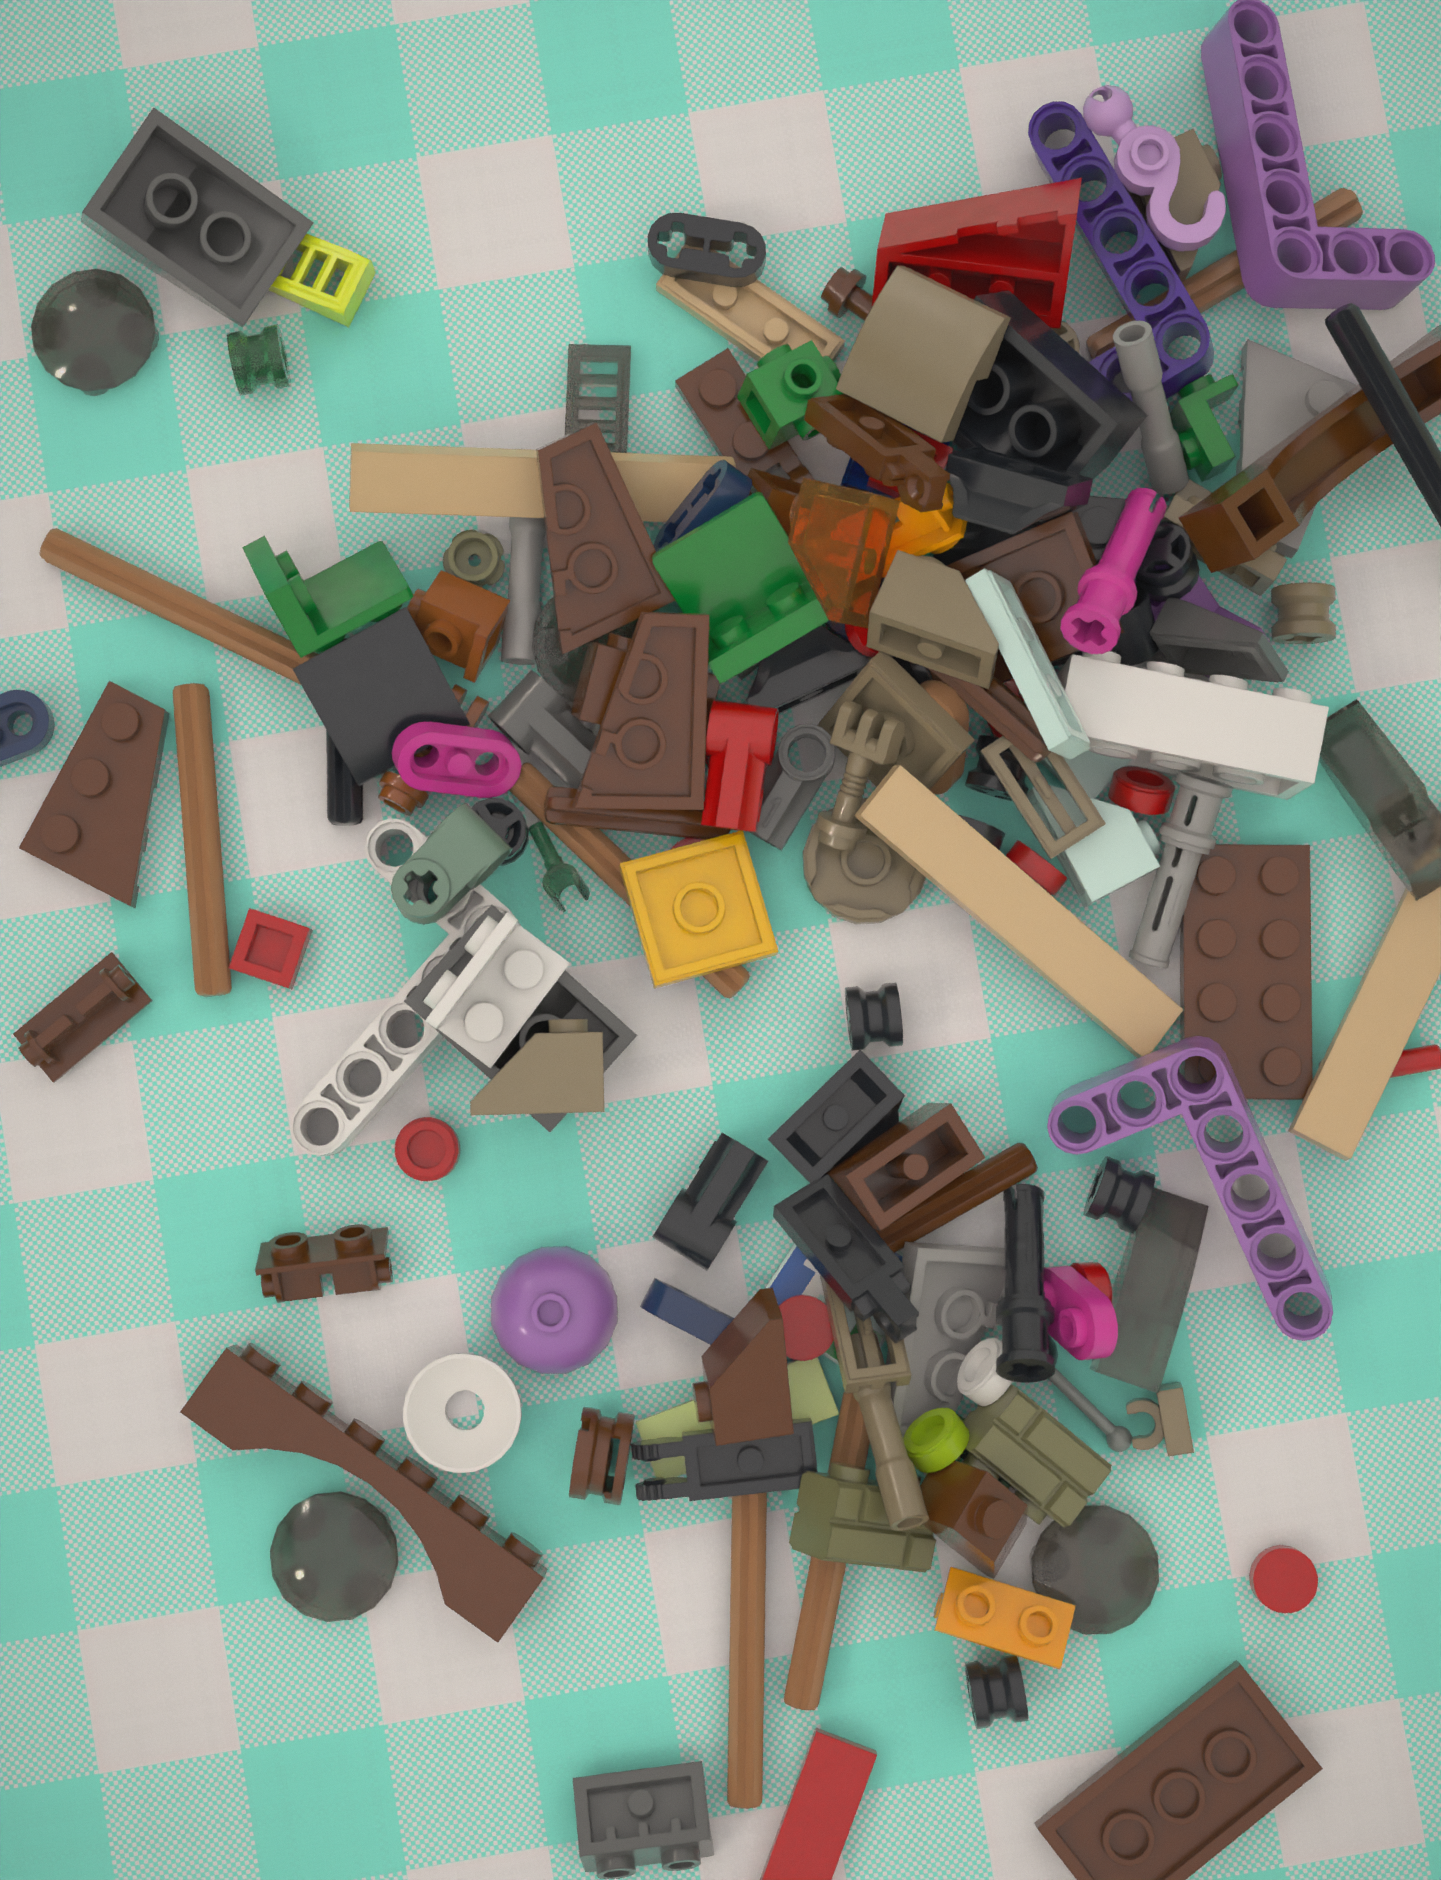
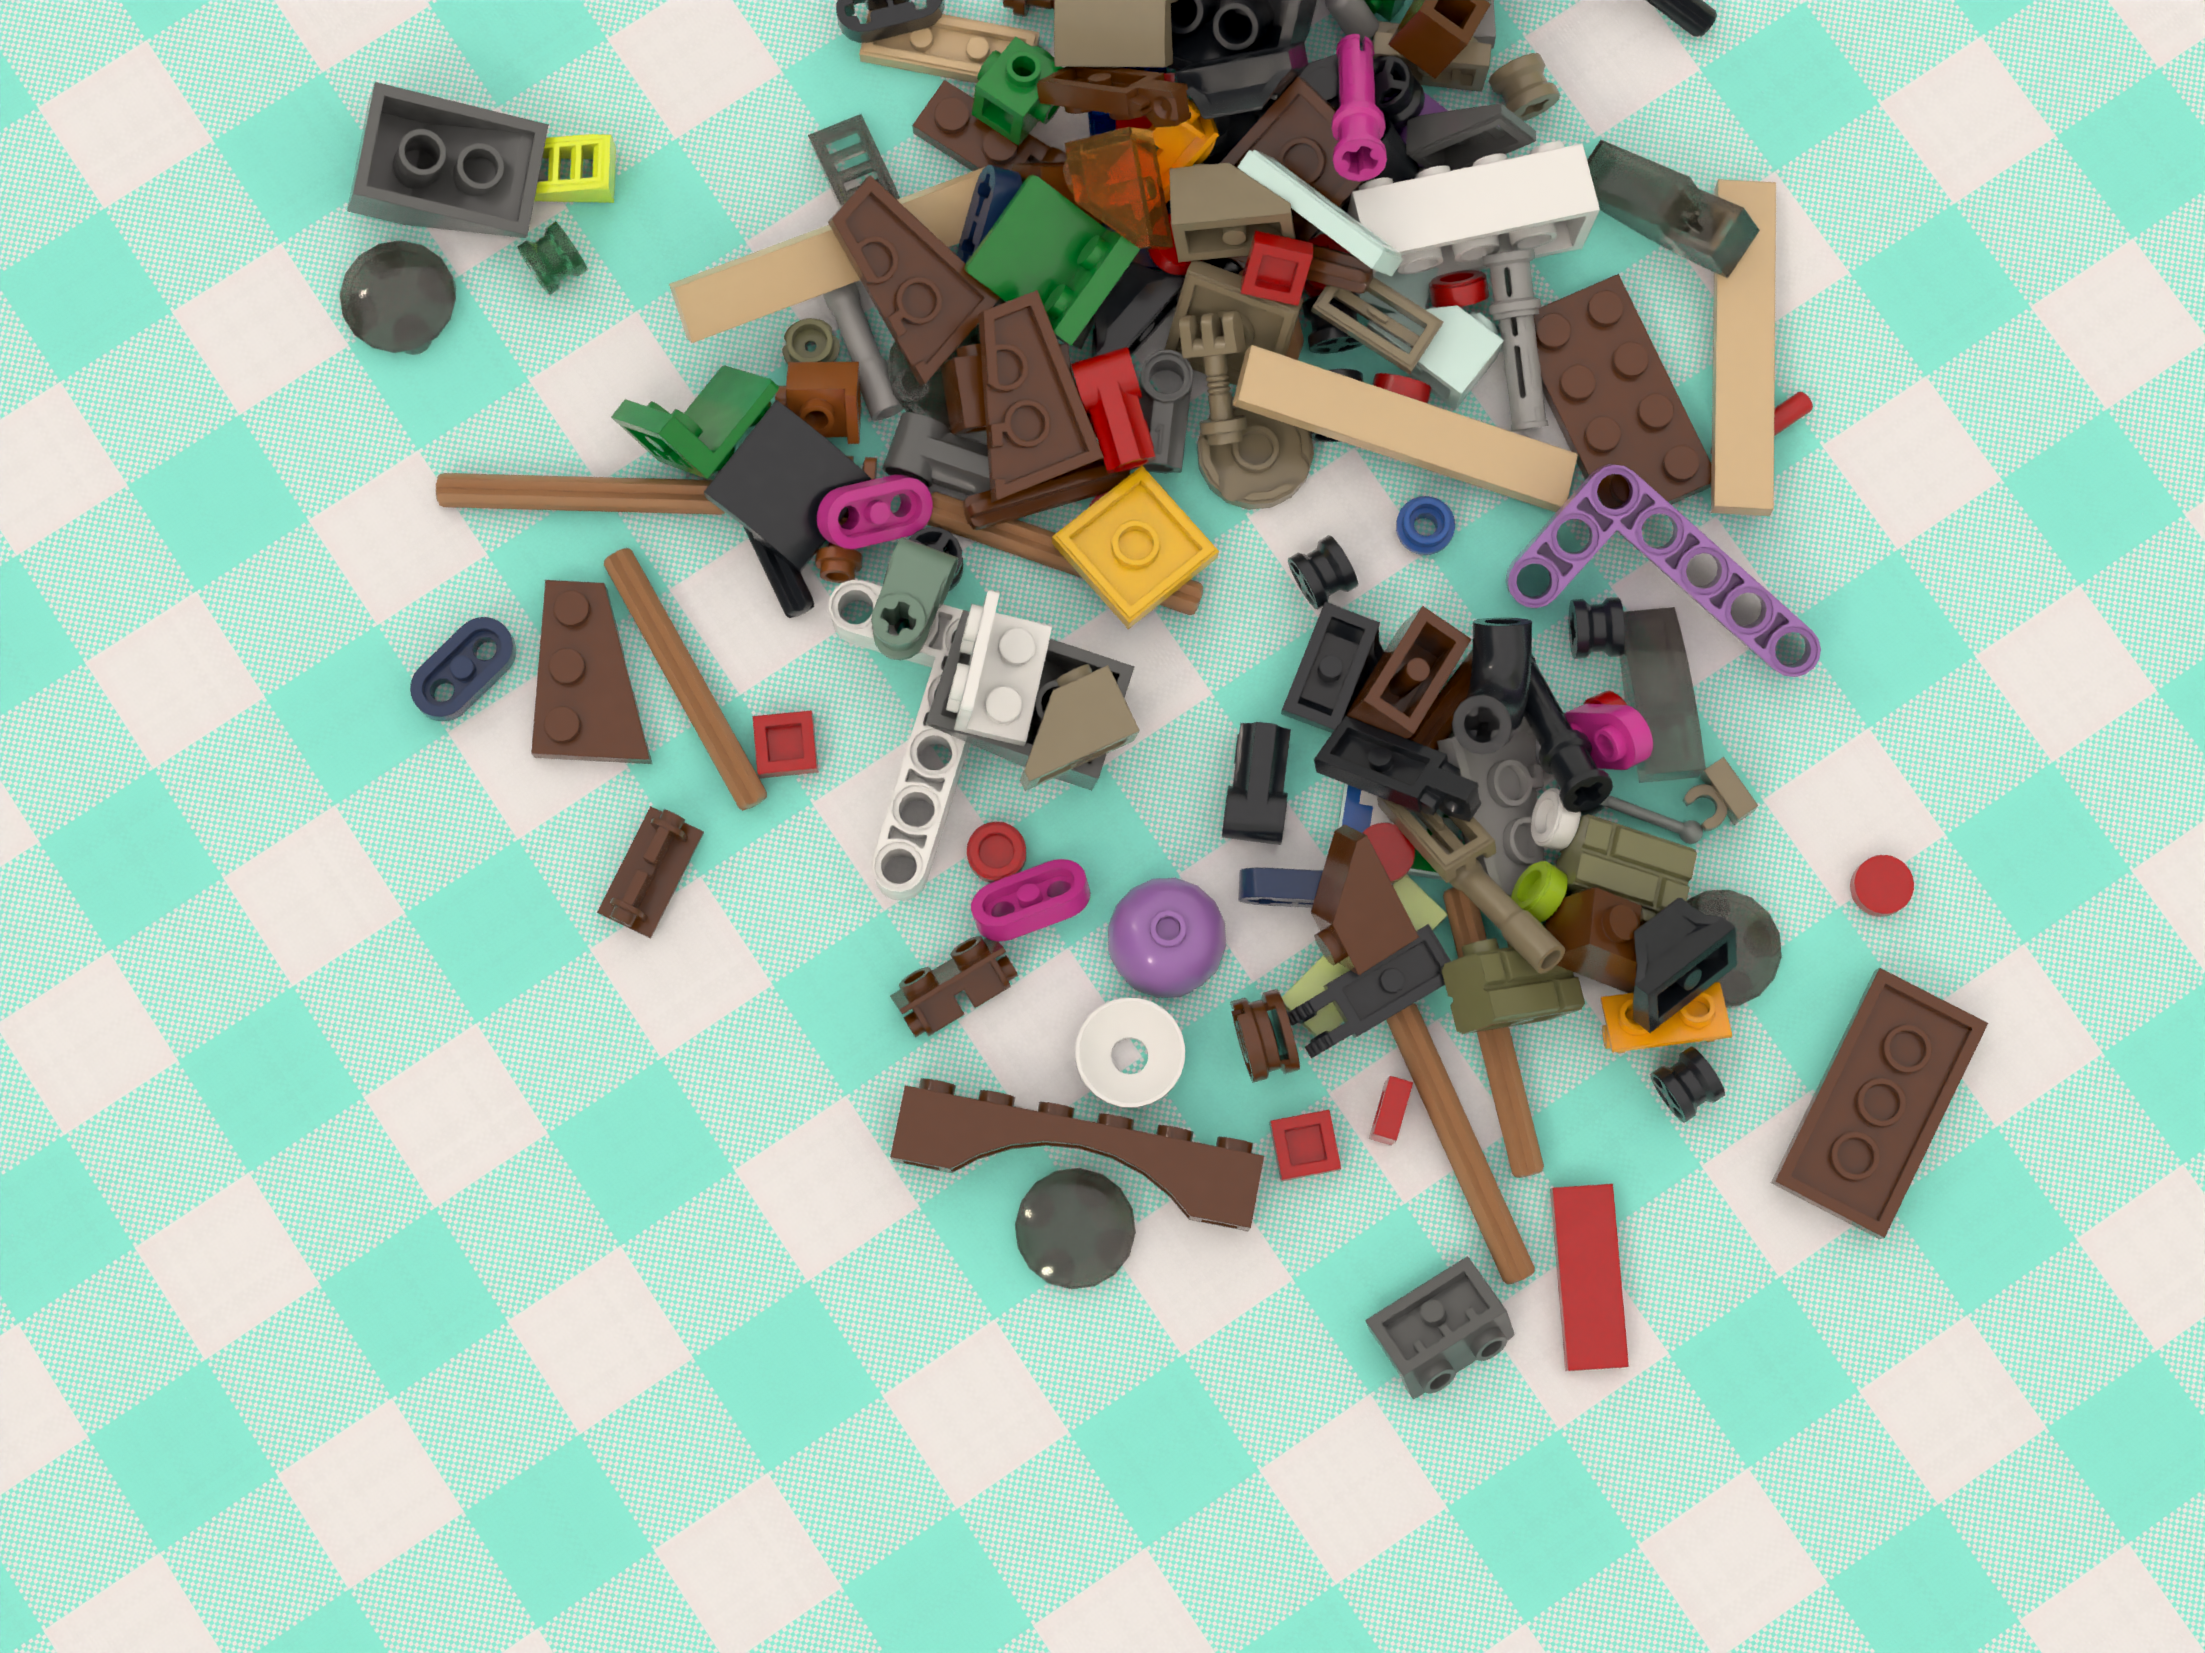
camera: 25 degrees left, 5 degrees down
(437, 1212) = (1030, 900): none -> dark pink plate
(558, 874) = (1003, 572): clear green hand -> none
(595, 1576) = (1305, 1145): none -> red tile
(692, 1584) = (1390, 1110): none -> red tile
(958, 700) = (1276, 268): none -> red tile
(987, 1218) = (1496, 686): none -> black cylinder
(1015, 1001) = (1431, 509): none -> blue plate
(1039, 1574) = (1678, 959): none -> black slope

